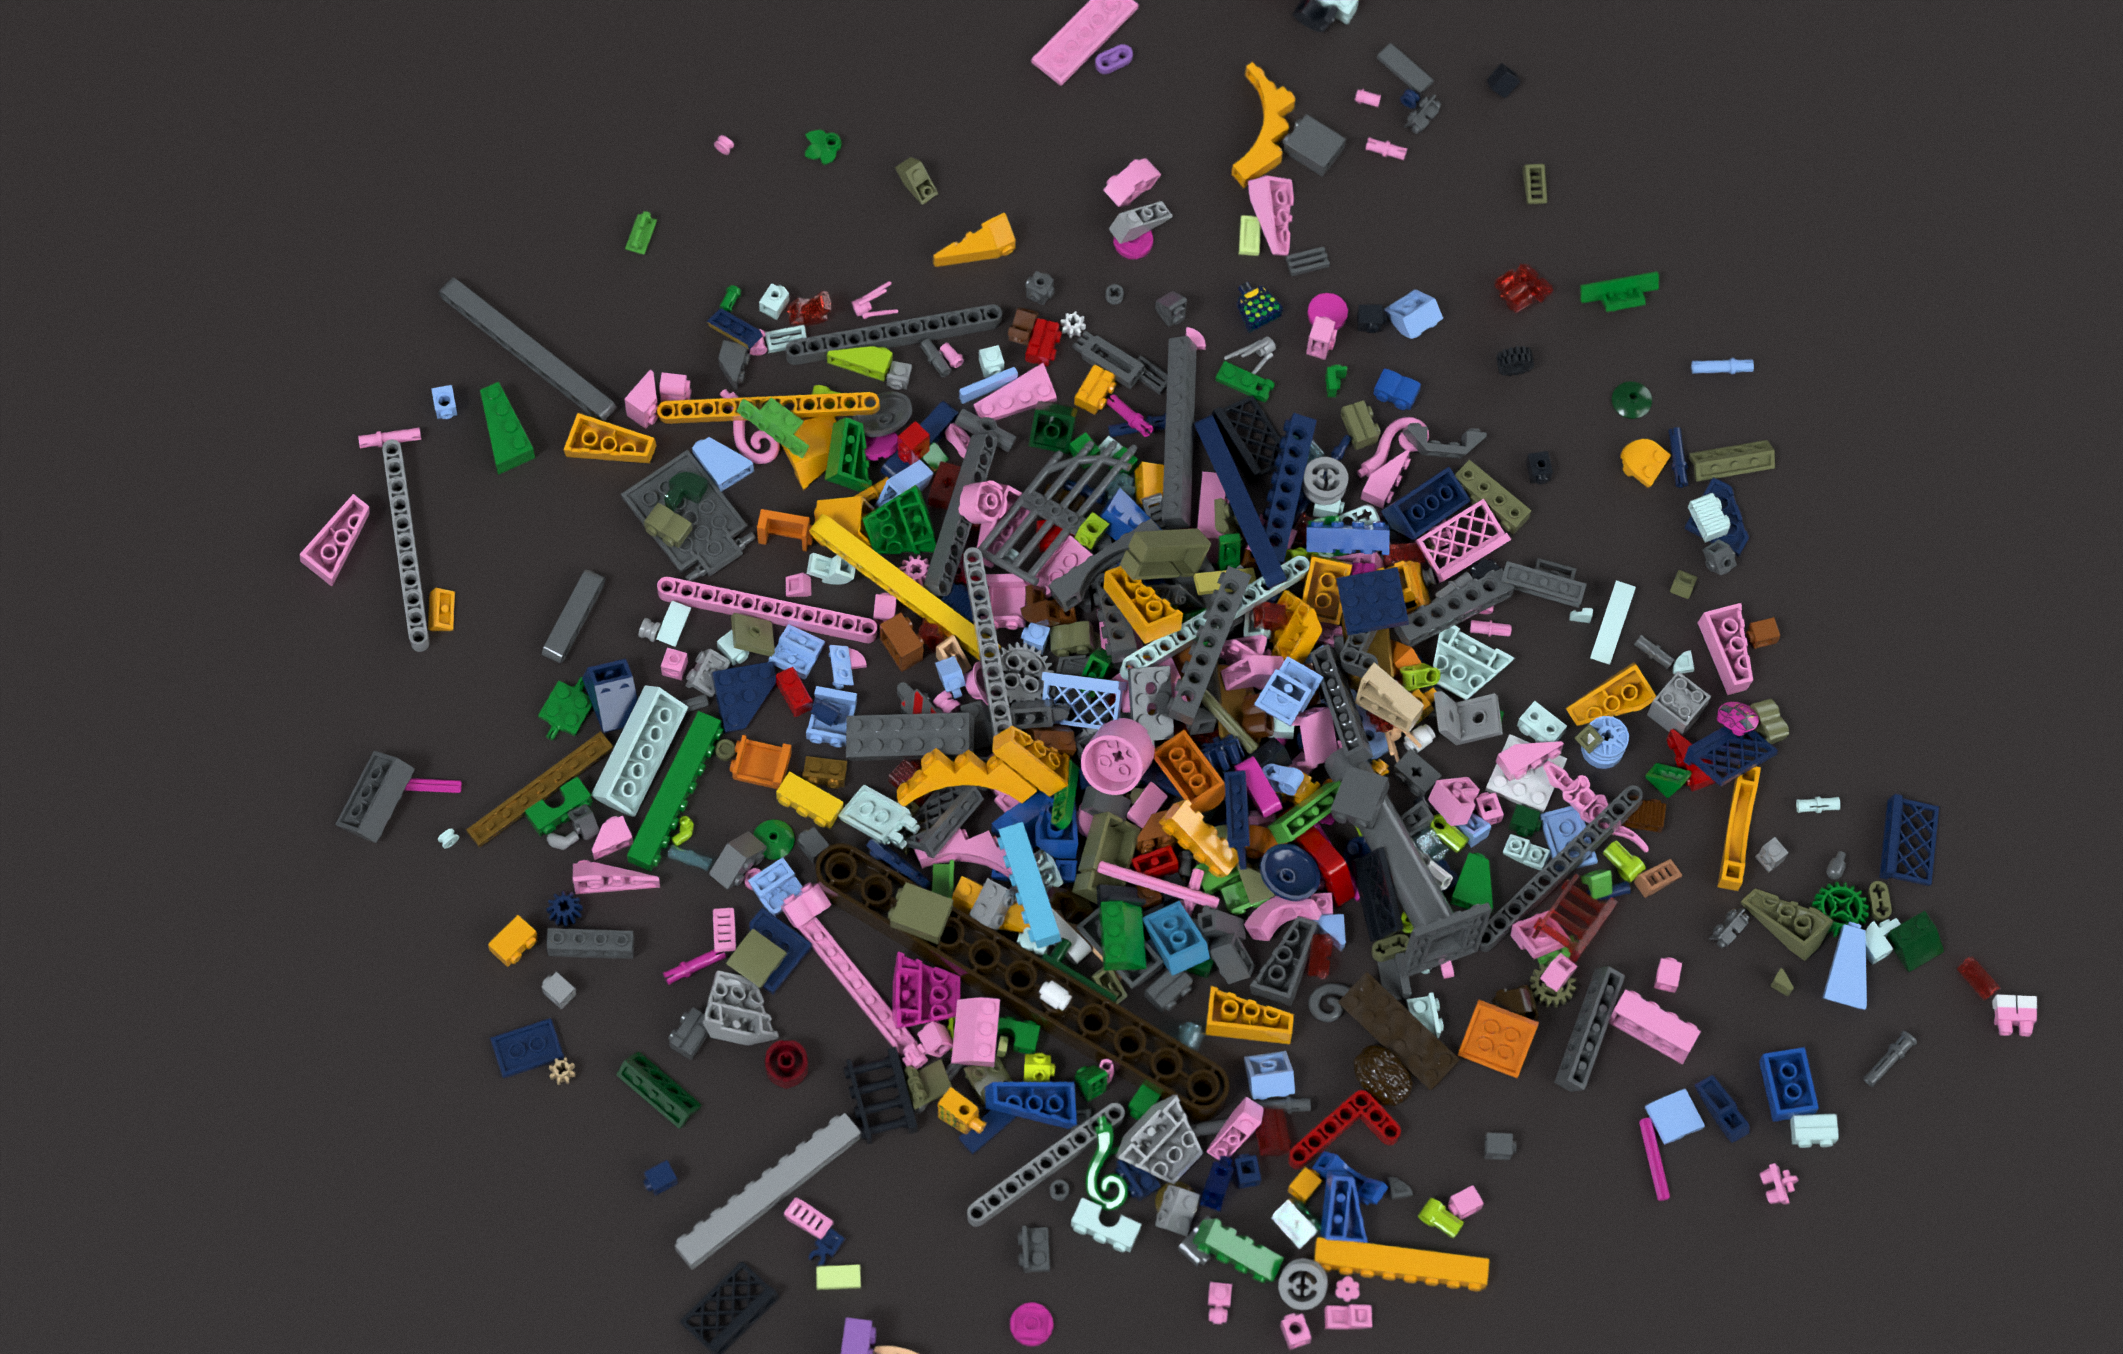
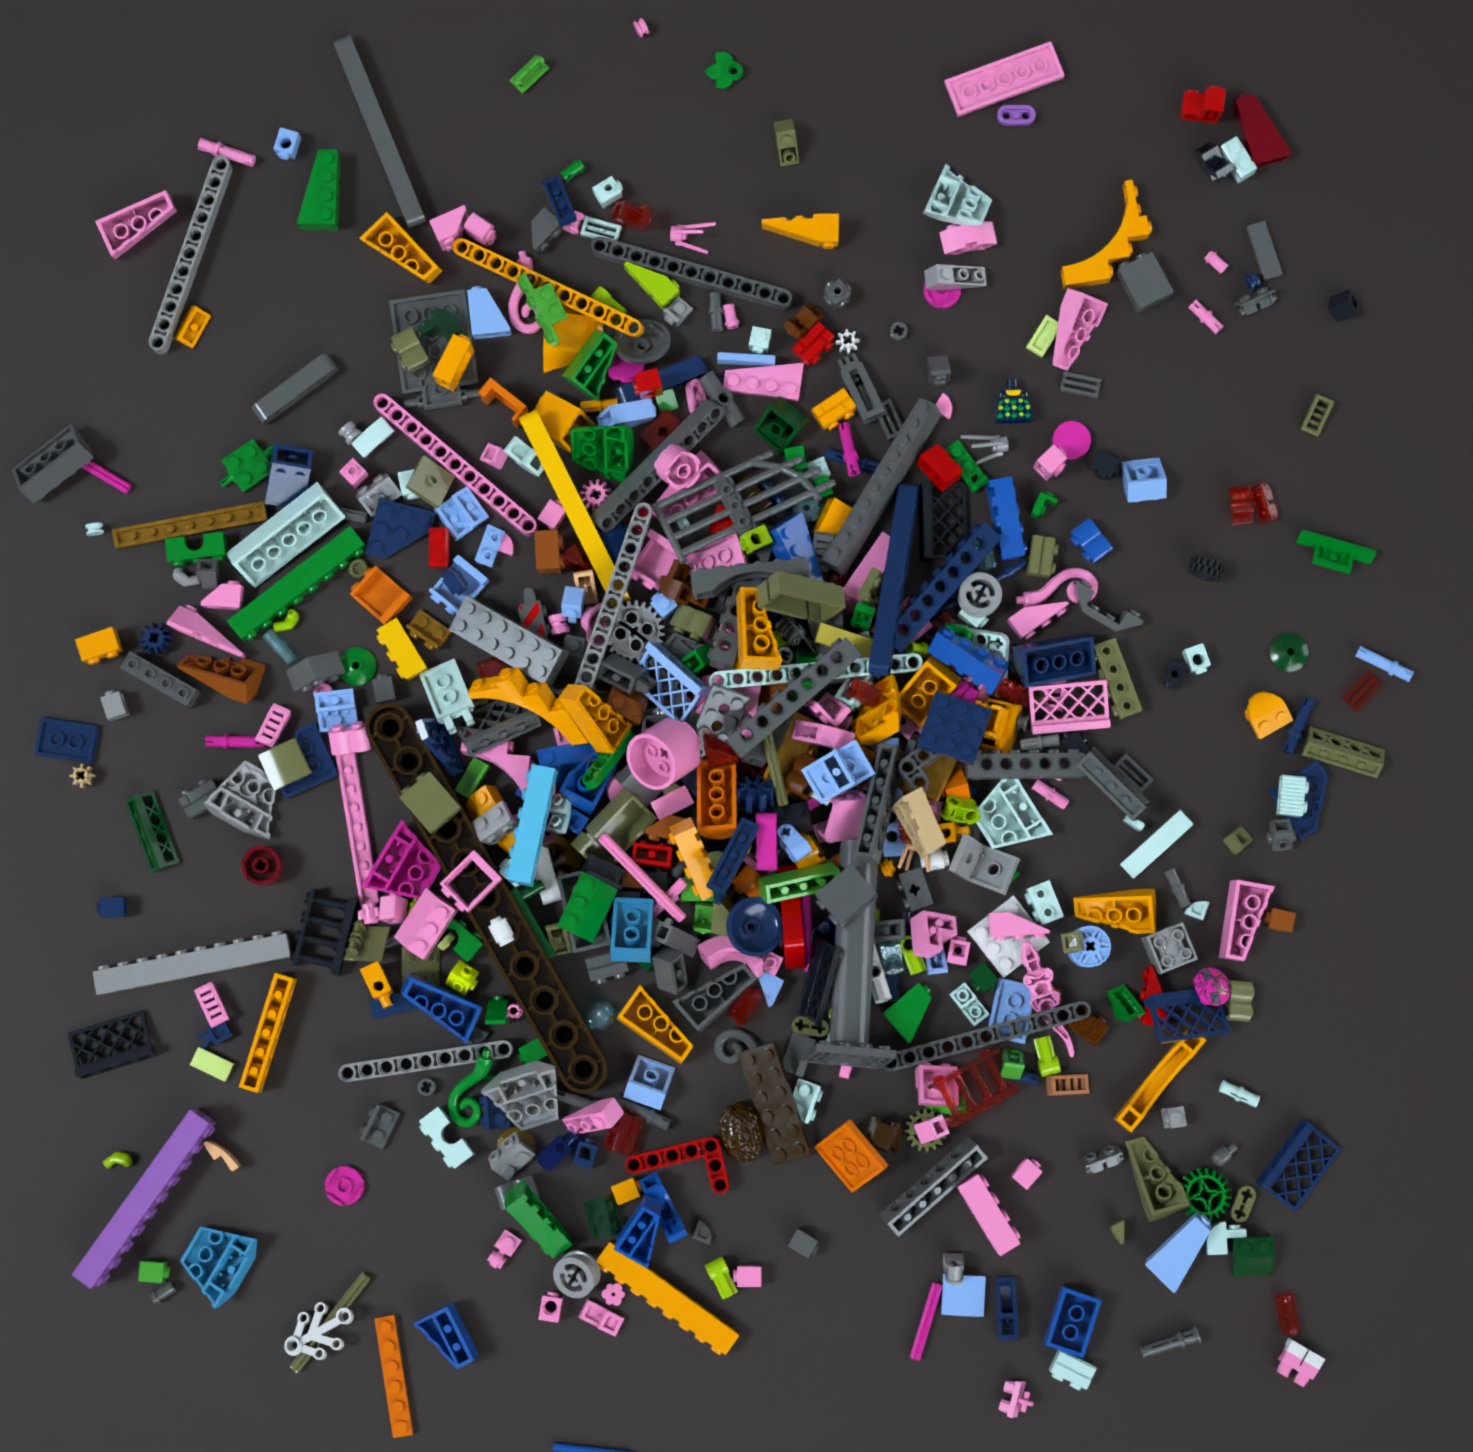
camera: 35 degrees right, 15 degrees up
(662, 908) = (230, 678): none -> dark orange wedge
(717, 514) = (453, 362): none -> light orange window
(878, 1215) = (268, 1032): none -> light orange brick
(1007, 945) = (449, 891): none -> bright pink window
(1103, 157) = (957, 201): none -> light aqua wedge
(1167, 732) = (718, 752): none -> clear red slope
(1222, 391) = (939, 467): none -> red brick
(1302, 398) = (1005, 518): none -> blue wedge
(1551, 435) = (1200, 651): none -> light aqua brick
(1650, 1093) = (953, 1267): none -> light grey piece
(1721, 385) = (1374, 679): none -> clear red tile

